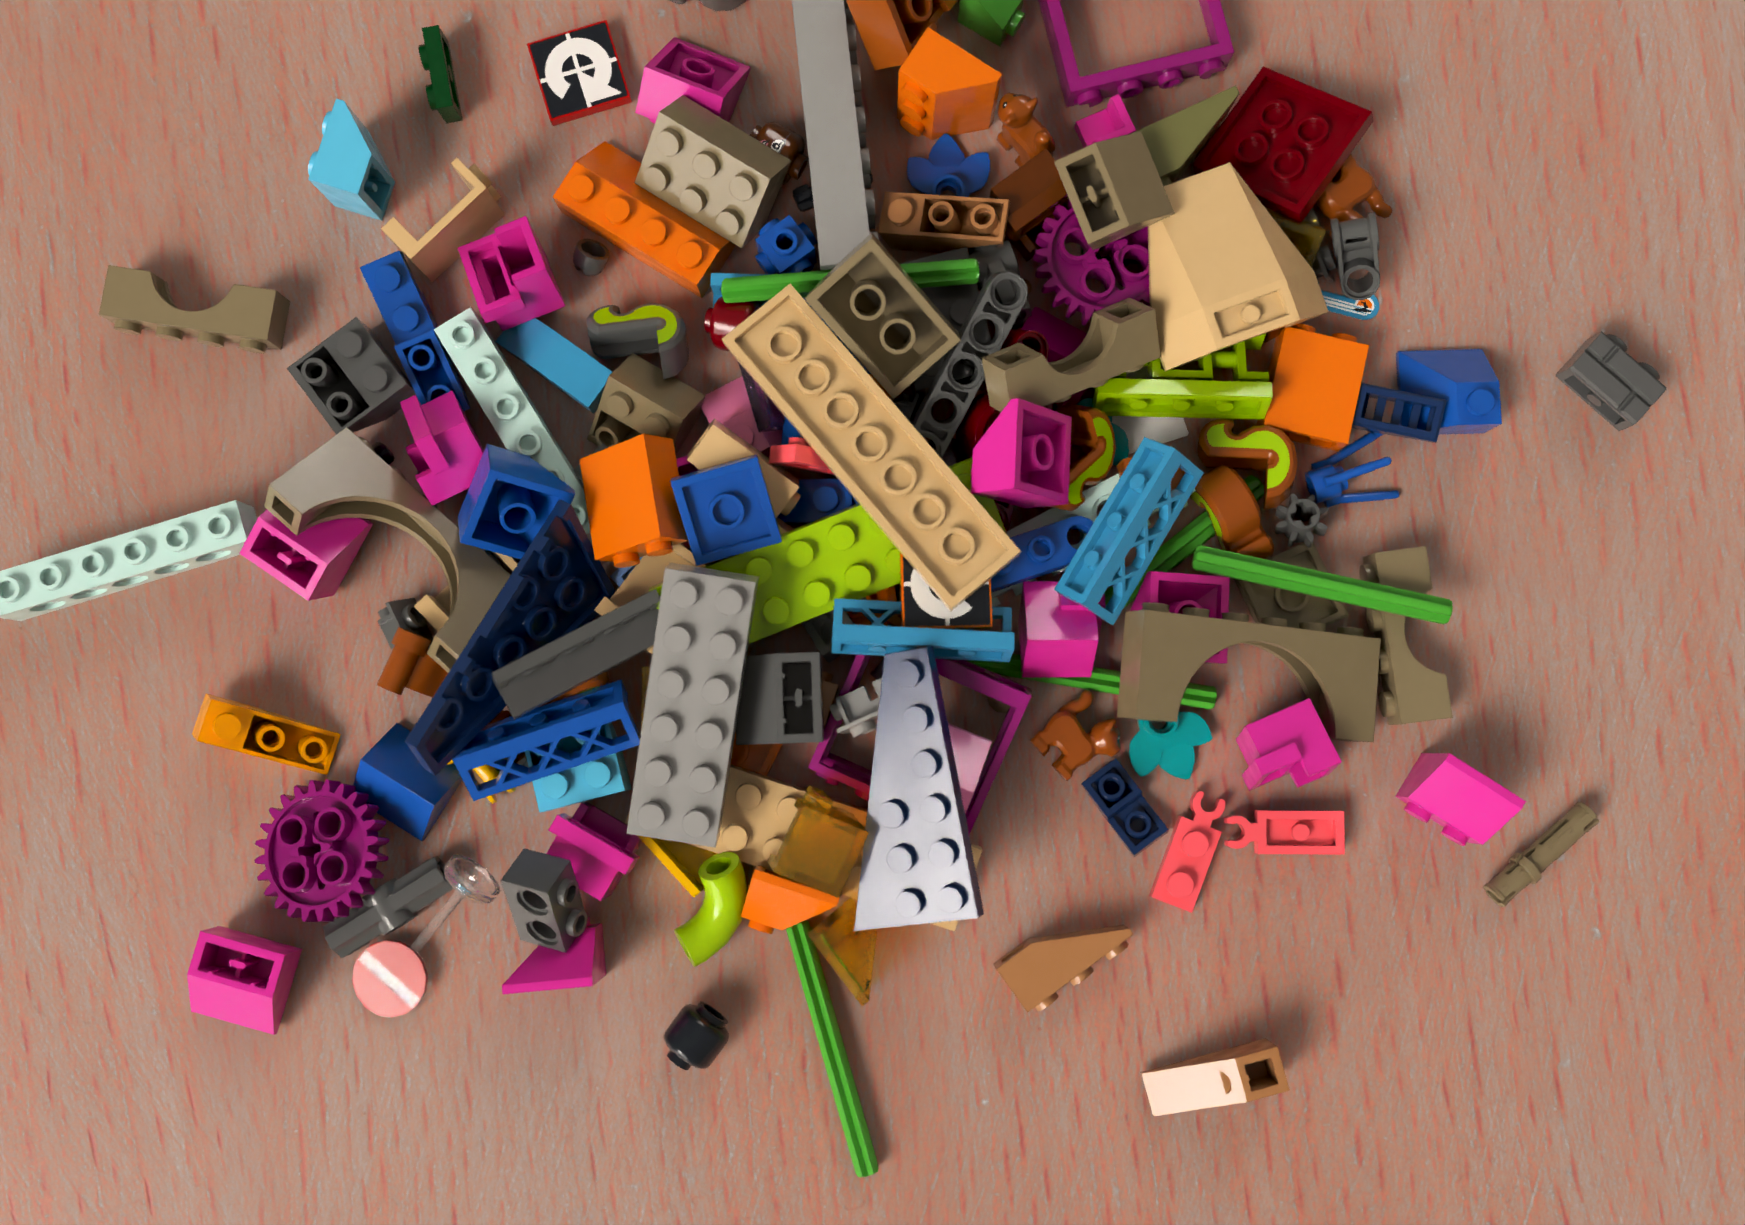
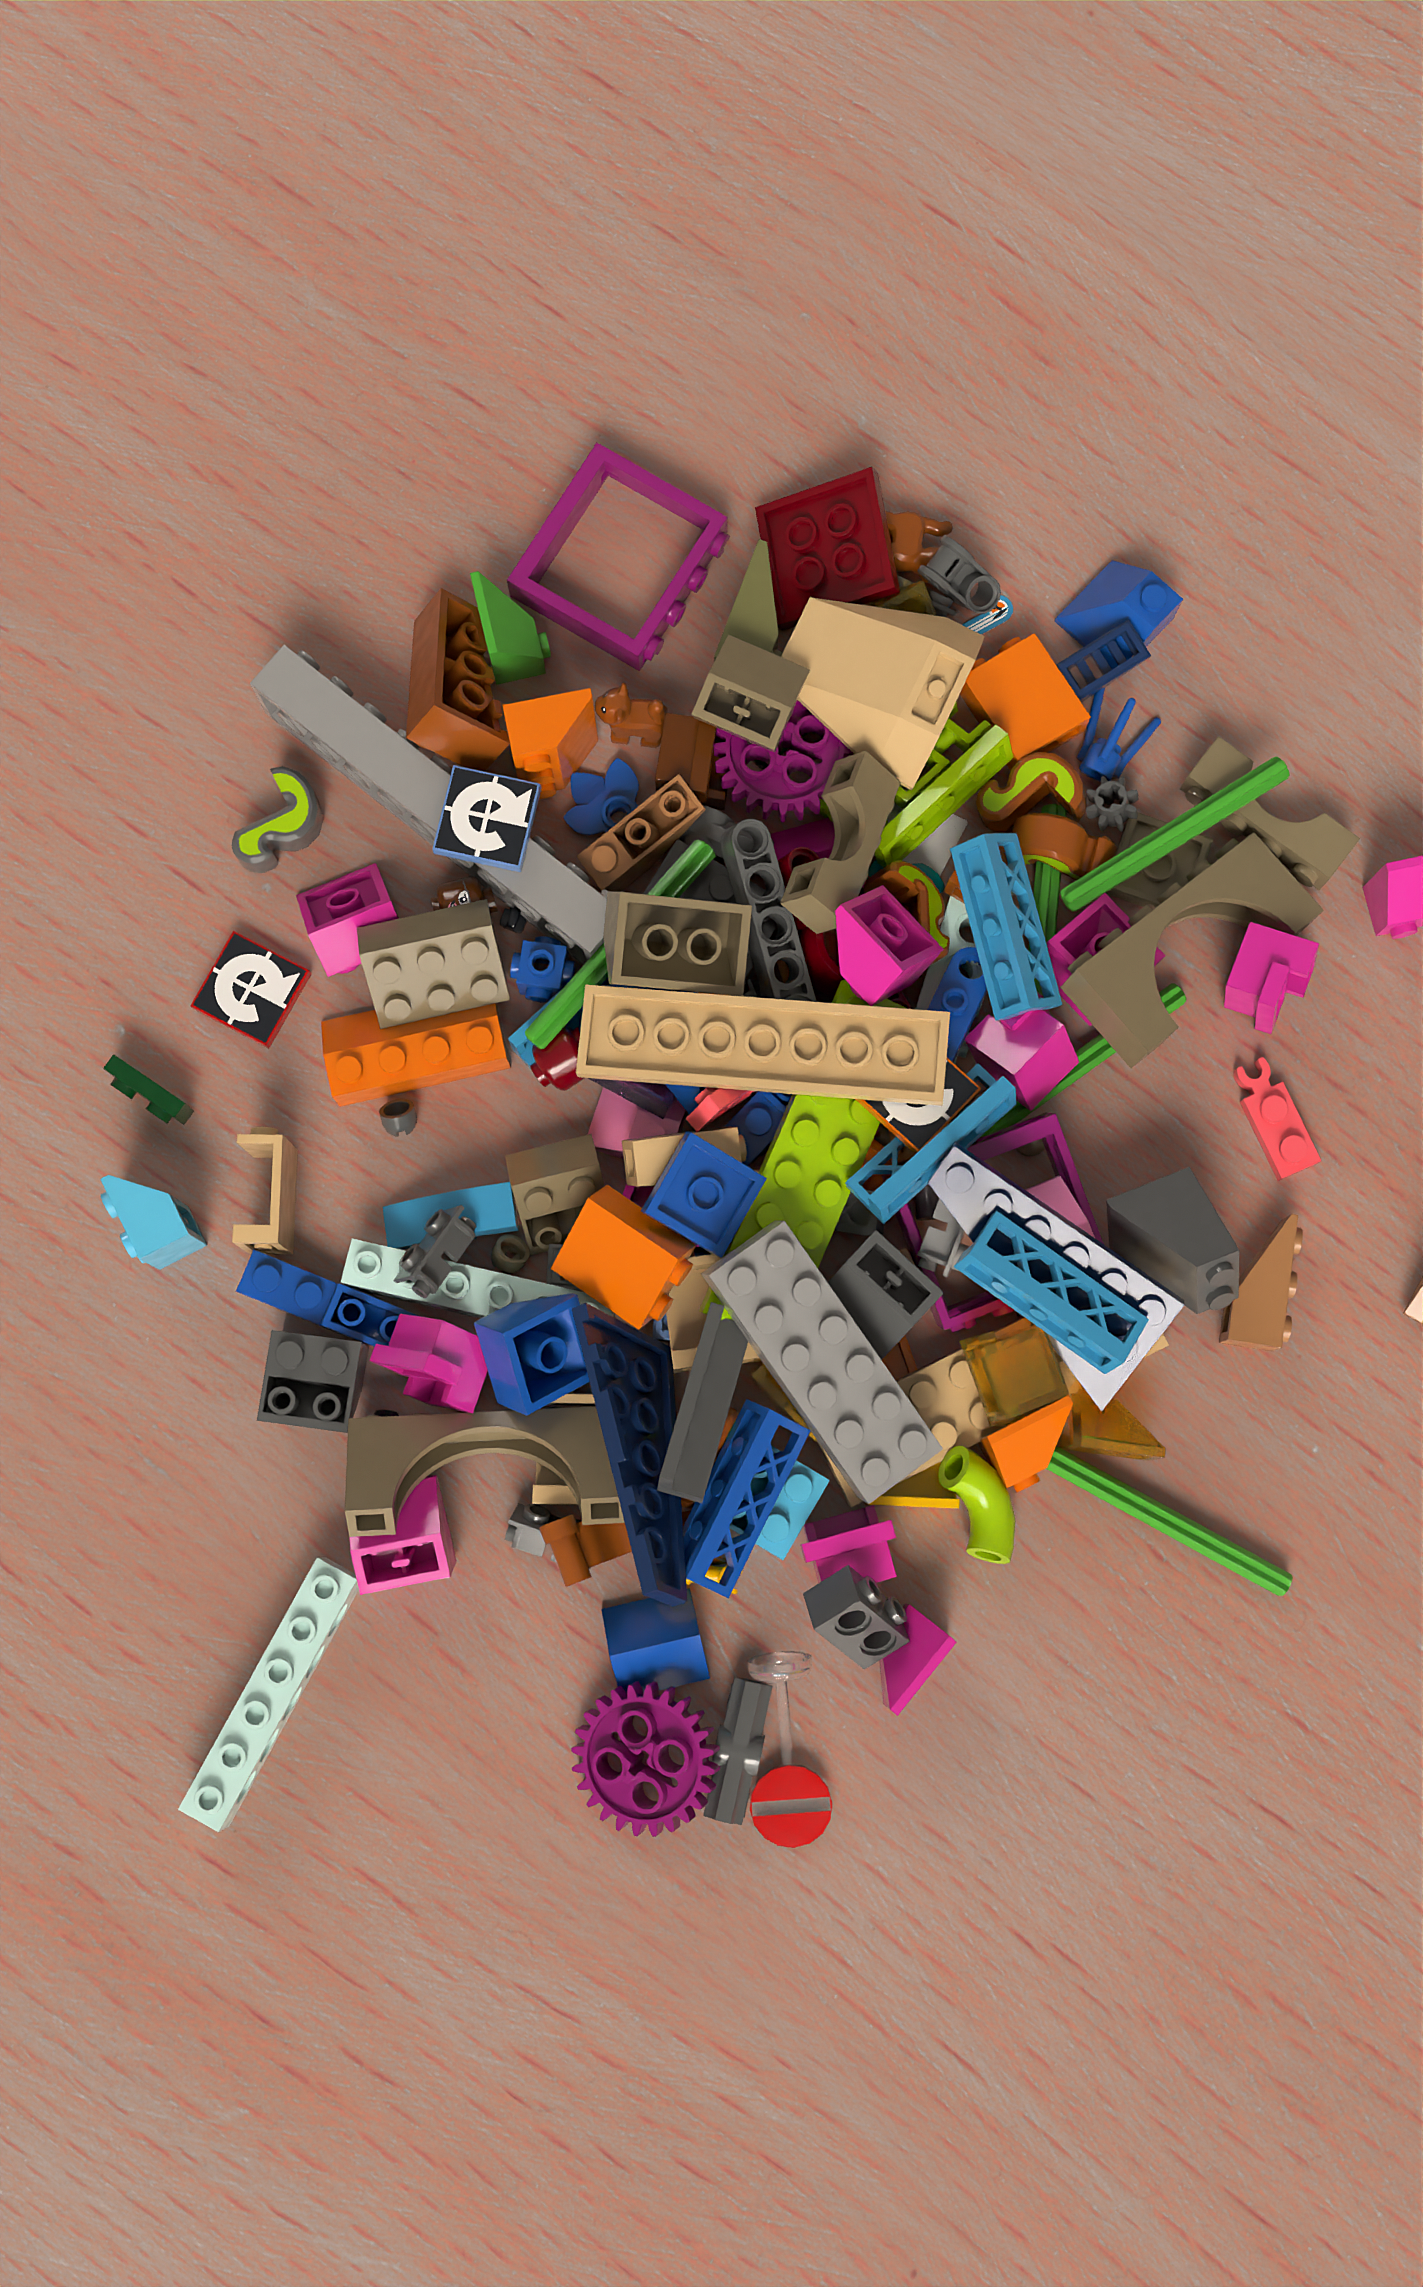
camera: 45 degrees left, 5 degrees down
(241, 978) = (683, 1918): dark pink slope -> none
(245, 315) = (180, 1416): dark tan arch -> none
(264, 734) = (511, 1717): light orange slope -> none
(511, 275) = (357, 1184): dark pink plate -> none
(530, 365) = (424, 1262): none -> dark grey hinge
(568, 415) = (515, 1246): none -> dark tan hinge
(640, 331) = (495, 1133): dark grey animal -> none
(696, 1036) = (1063, 1611): black head -> none
(842, 101) = (486, 818): none -> tile
(876, 818) = (1043, 1307): none -> dark azure fence
(1027, 866) = (1177, 1240): none -> dark grey slope
(1071, 739) = (1109, 1121): dark orange animal -> none
(1105, 124) = (688, 660): dark pink panel -> none
(1124, 807) = (1196, 1133): dark blue slope -> none
(1169, 746) = (1182, 1059): teal plate -> none
(1291, 832) = (1331, 1033): coral plate -> none
(1612, 380) = (1225, 495): dark grey brick -> none

